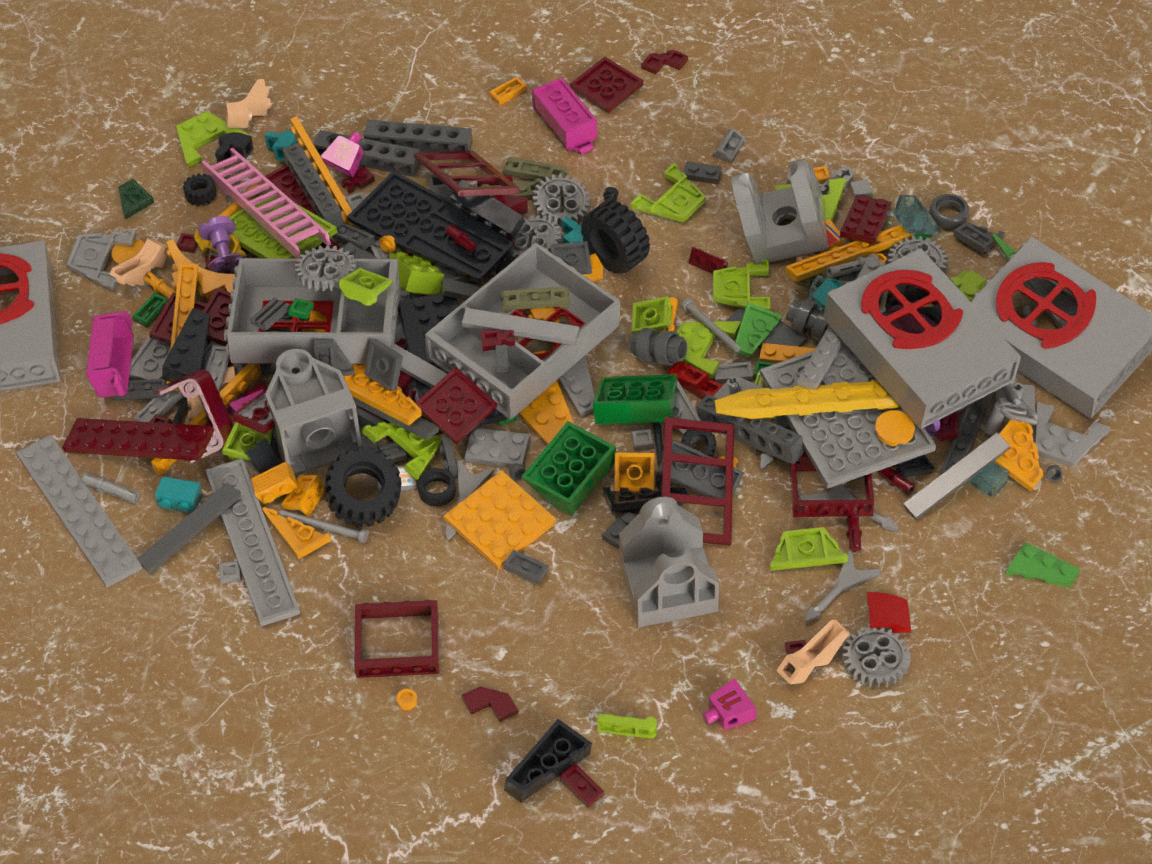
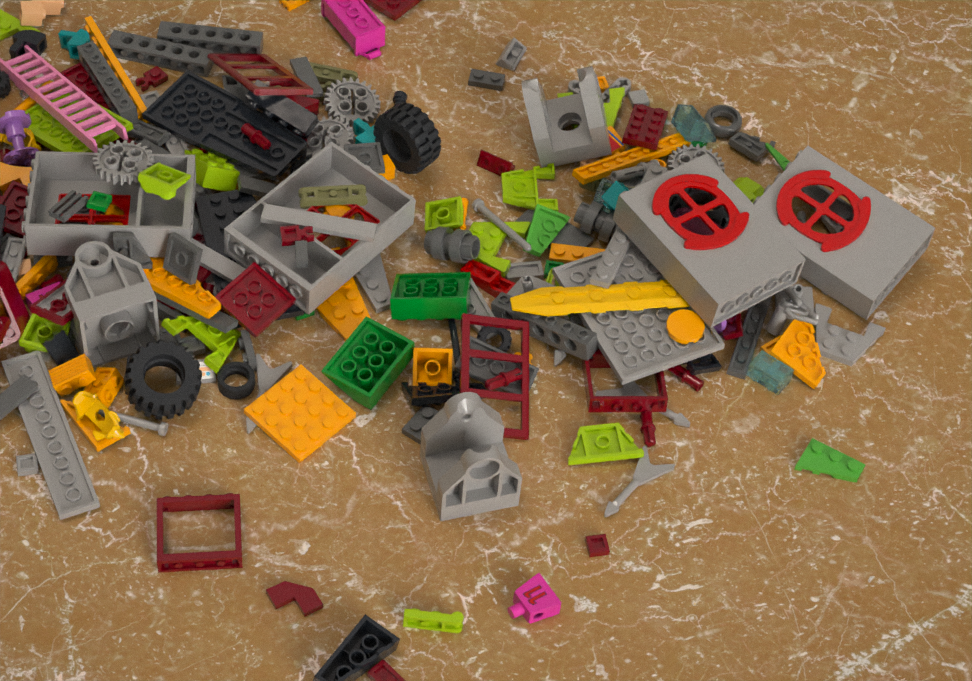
camera: 10 degrees left, 0 degrees up
(290, 512) = (89, 405): none -> yellow piece
(344, 154) = (138, 53): torso -> none
(387, 243) = (182, 141): light orange plate -> none
(406, 699) = (210, 594): light orange tile -> none
(496, 447) = (295, 342): light grey plate -> none
(513, 171) = (304, 71): none -> dark grey tile
(516, 471) = (315, 365): dark grey hinge -> none
(526, 567) = (327, 460): dark grey plate -> none
(642, 439) = (438, 335): light grey tile -> none
(677, 202) = (464, 107): lime wing -> none
(705, 483) = (503, 379): none -> dark red axle
(817, 652) = (617, 547): light nougat arch -> none
(876, 656) = (675, 550): light grey gear -> none
(888, 611) = (685, 506): red slope -> none
(956, 476) = (744, 374): tile -> none
(1059, 474) = (839, 370): dark grey hinge -> none

